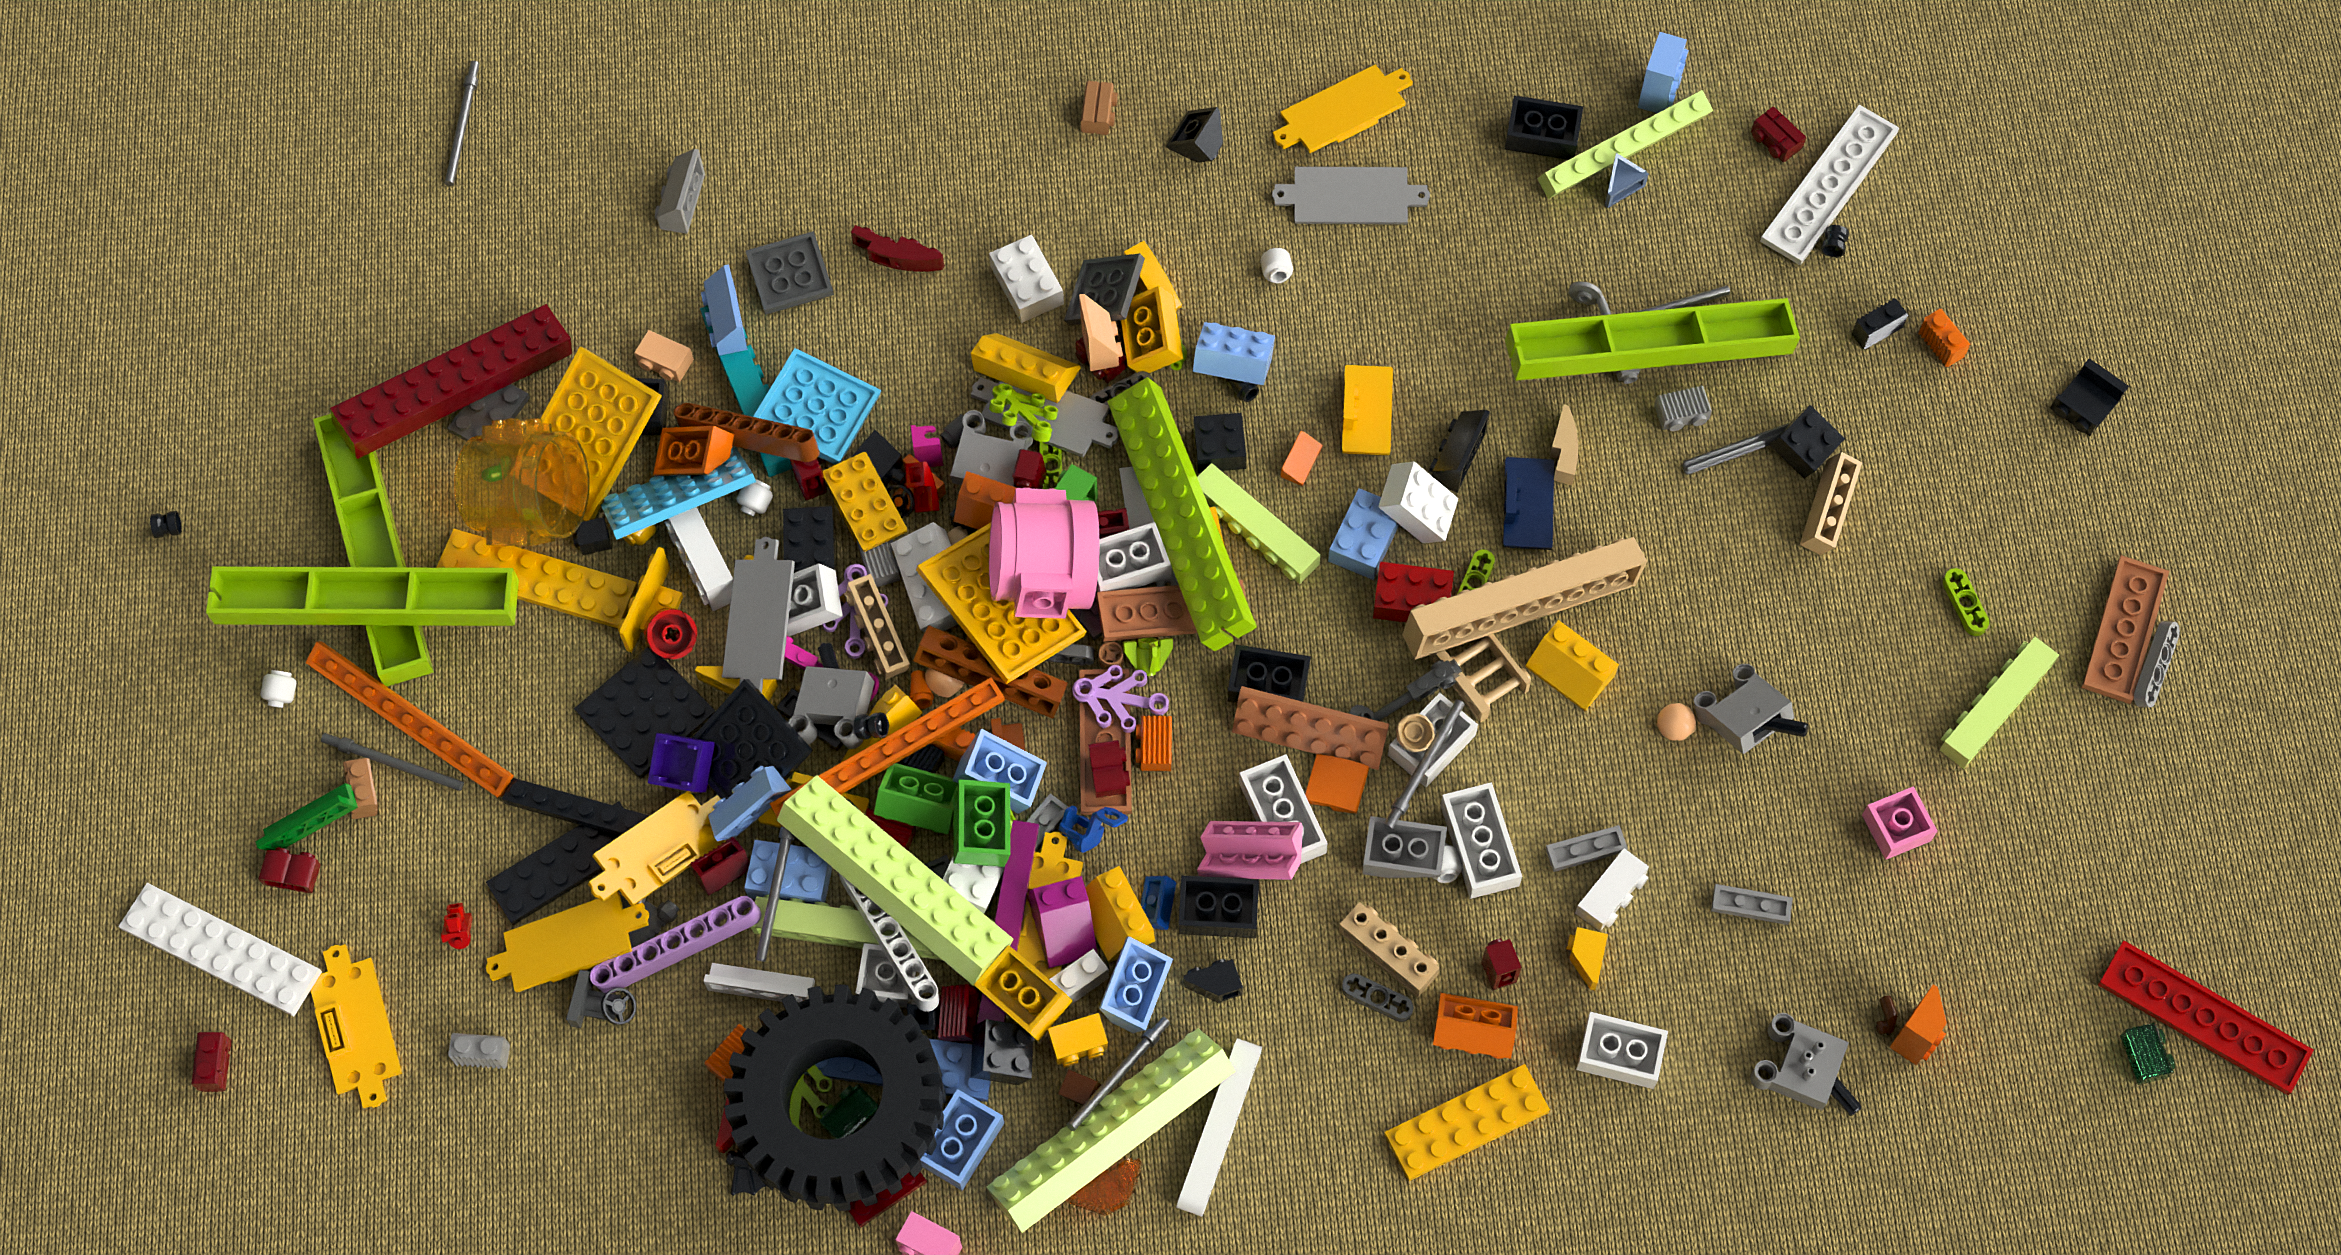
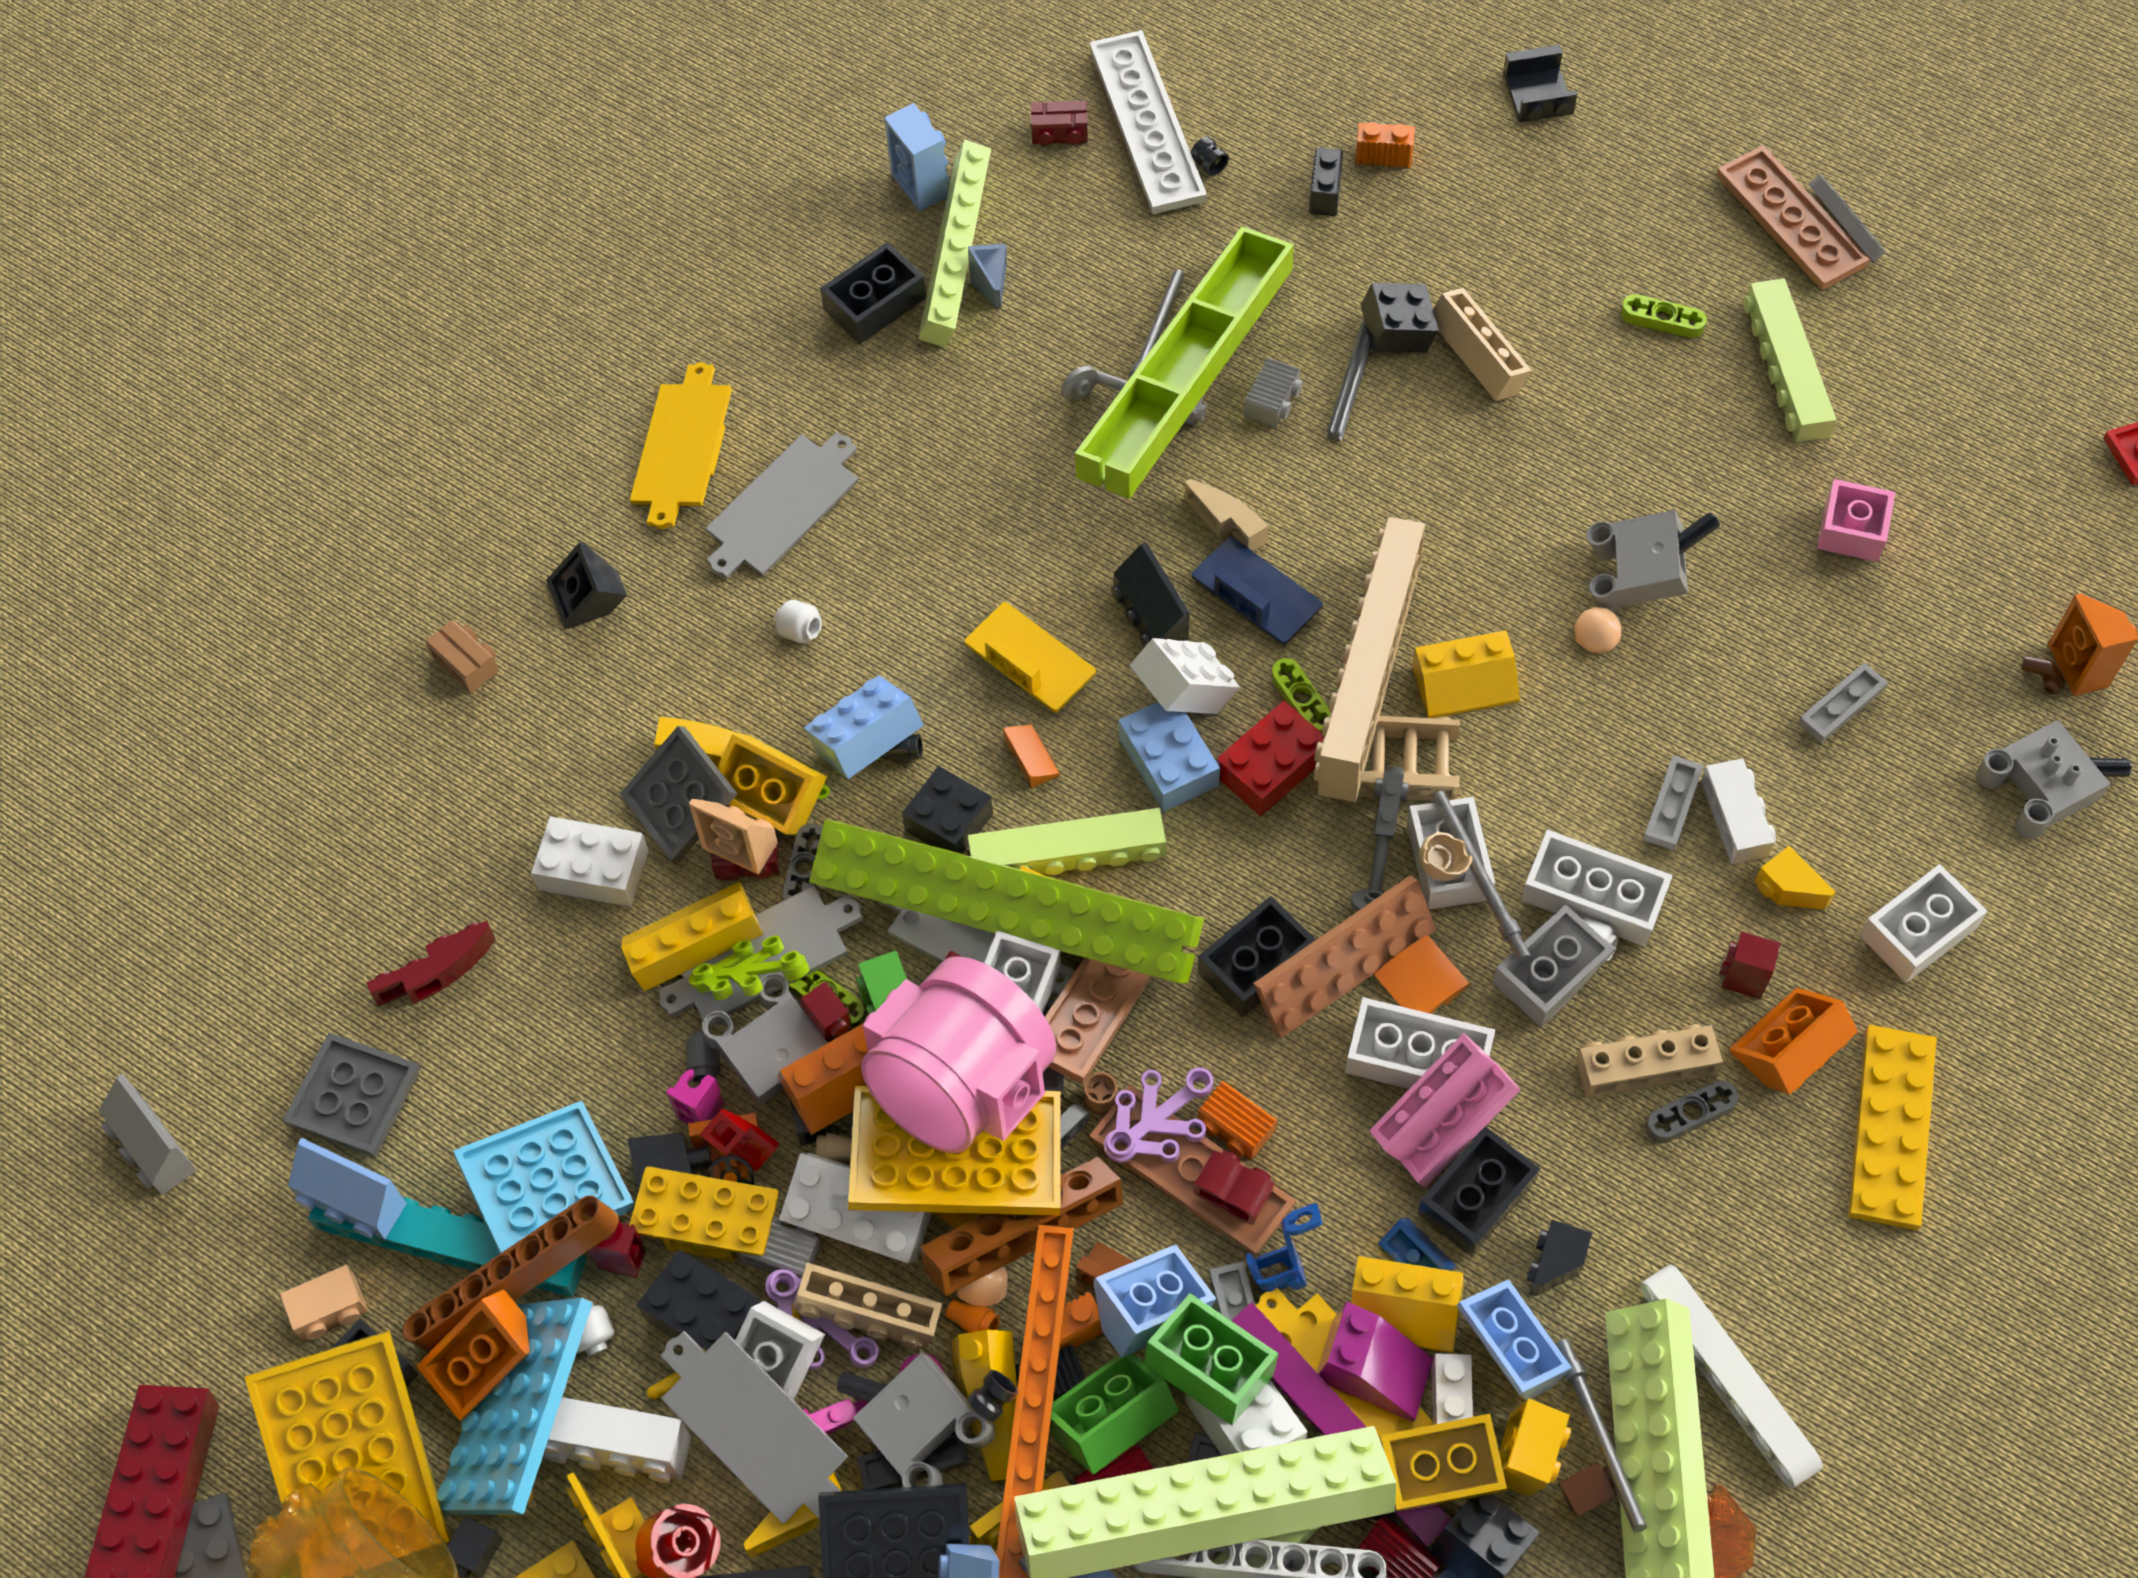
camera: 50 degrees left, 5 degrees down
(1148, 653) = (1130, 1052): lime brick -> none

